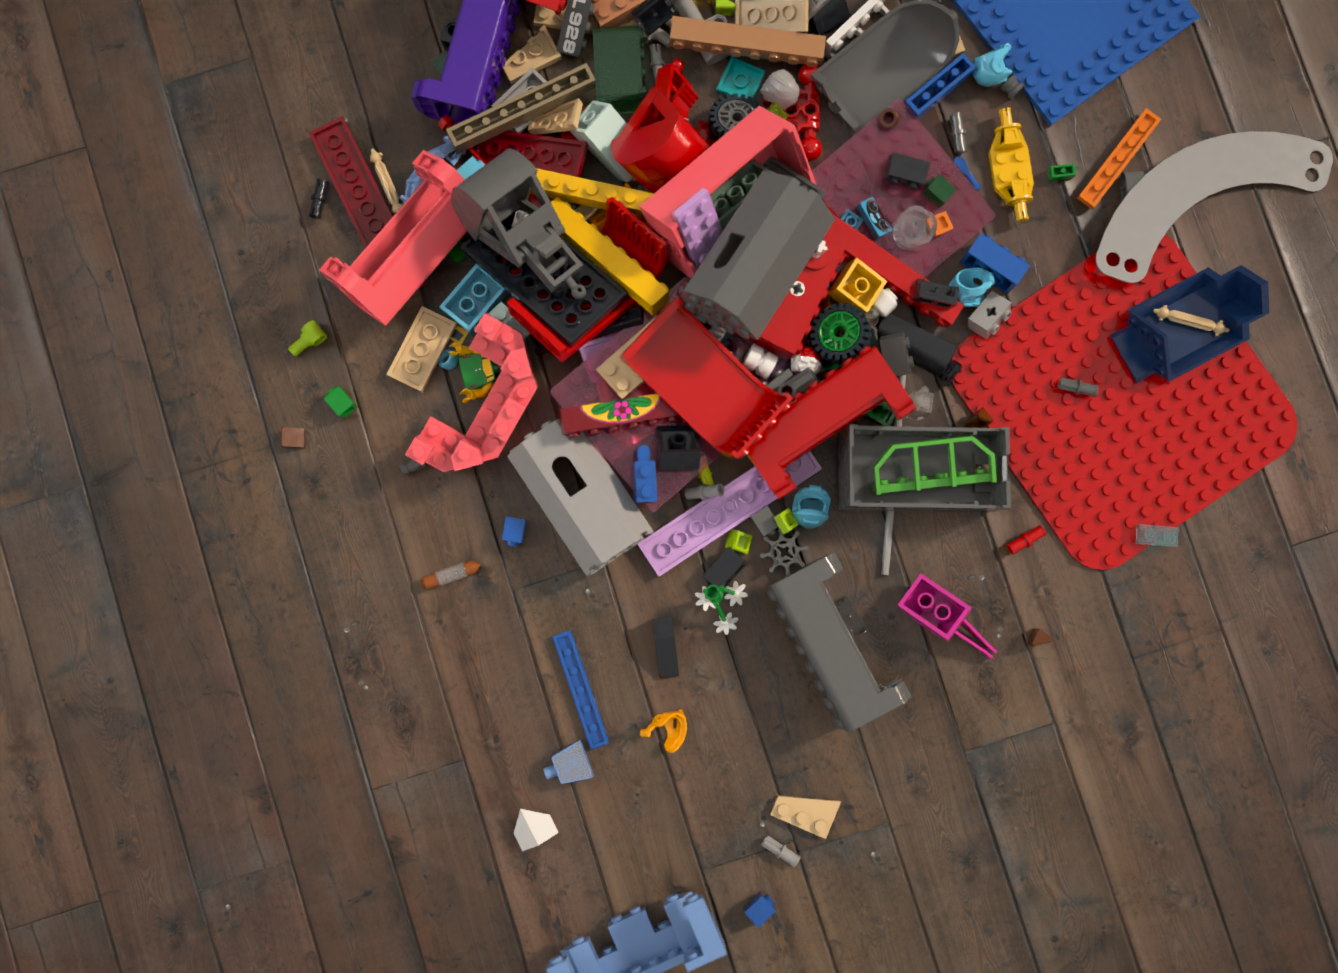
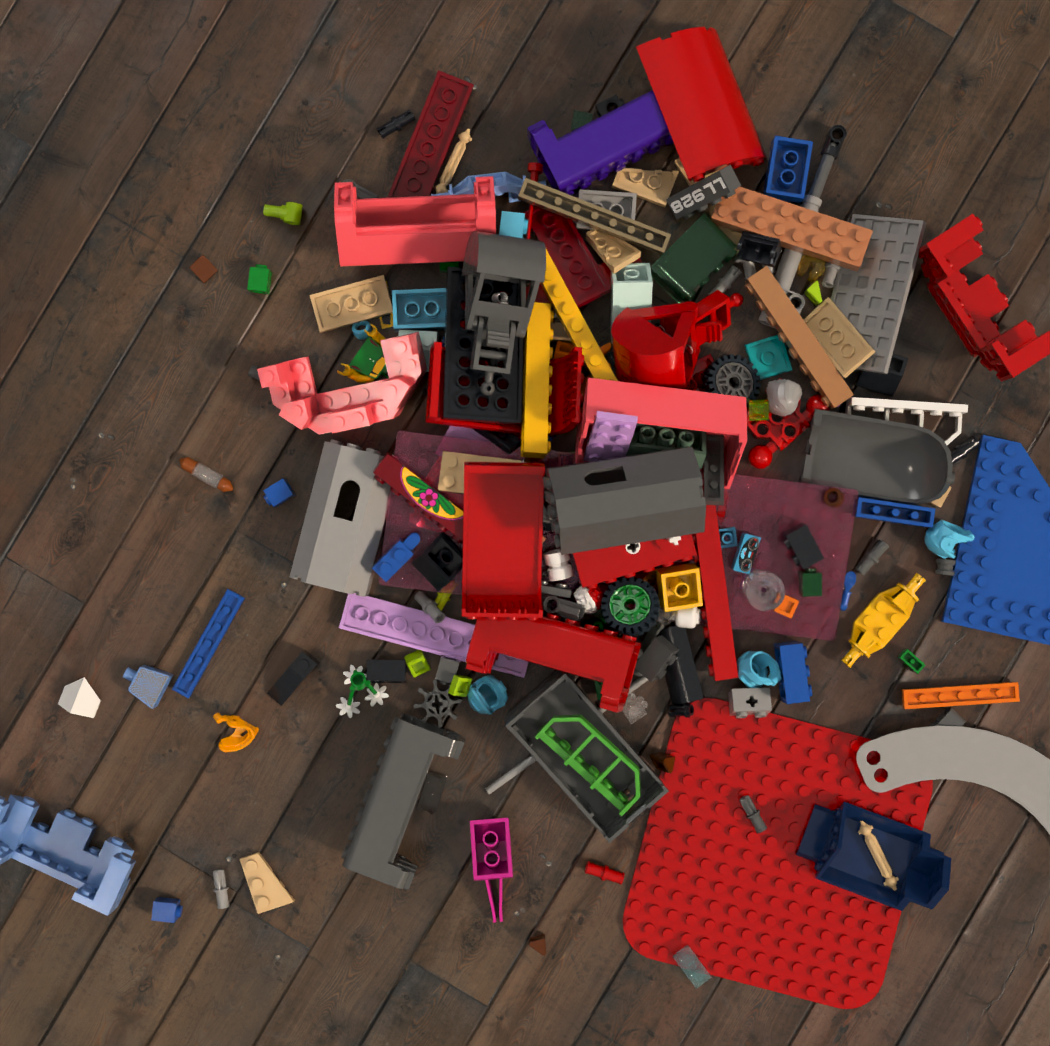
camera: 50 degrees right, 5 degrees up
(935, 294) = (726, 649): black hinge -> none

